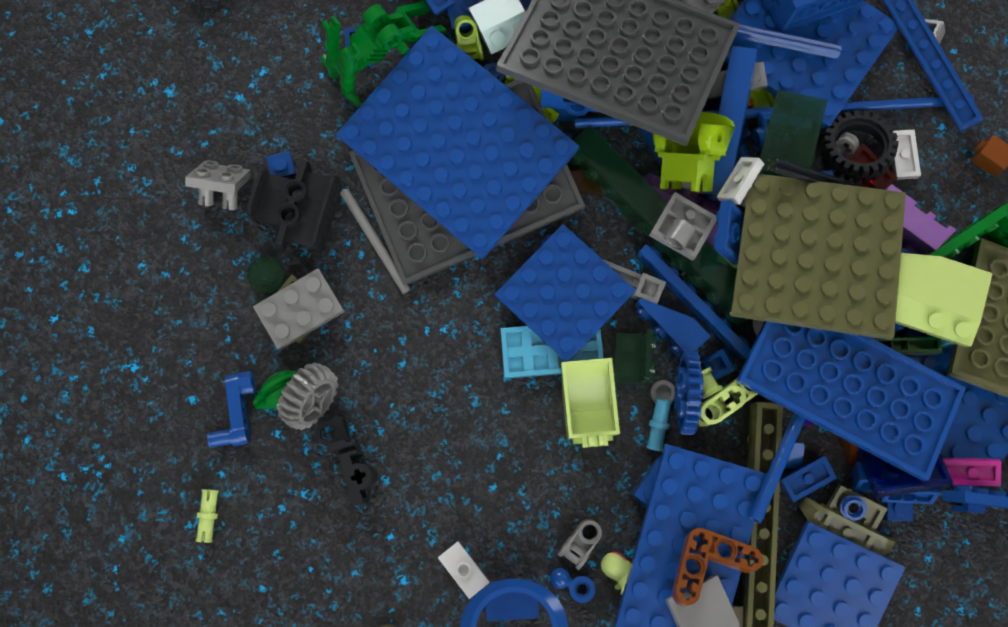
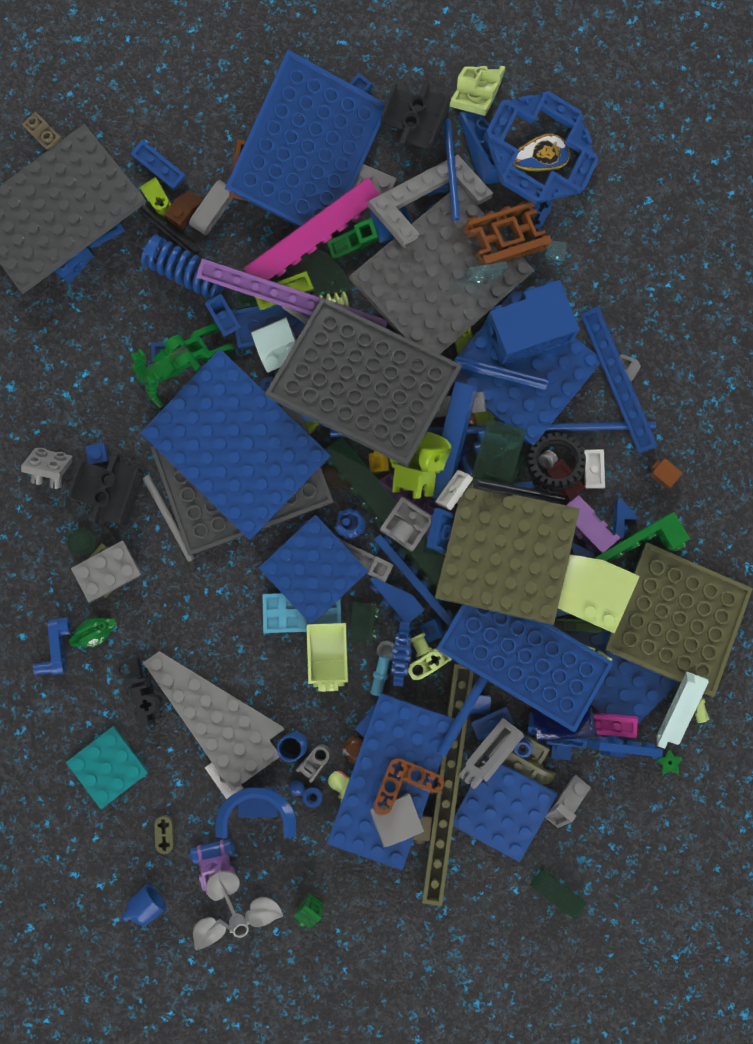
camera: 10 degrees right, 5 degrees up
(207, 515) = (31, 726): yellowish green pin -> none
(307, 396) = (110, 640): light grey gear -> none
(309, 565) = (107, 767): none -> teal plate
(460, 502) = (225, 727): none -> light grey wing
(469, 41) = (249, 360): lime piece -> none
(568, 529) = (284, 754): none -> blue piece
(607, 233) = (350, 523): none -> blue piece
(631, 521) = (352, 748): none -> reddish brown head
(637, 153) = (378, 462): none -> yellow plate
(820, 509) = (495, 747): none -> light grey hinge
(915, 583) = (567, 803): none -> light grey bracket
(946, 206) = (621, 514): none -> blue slope

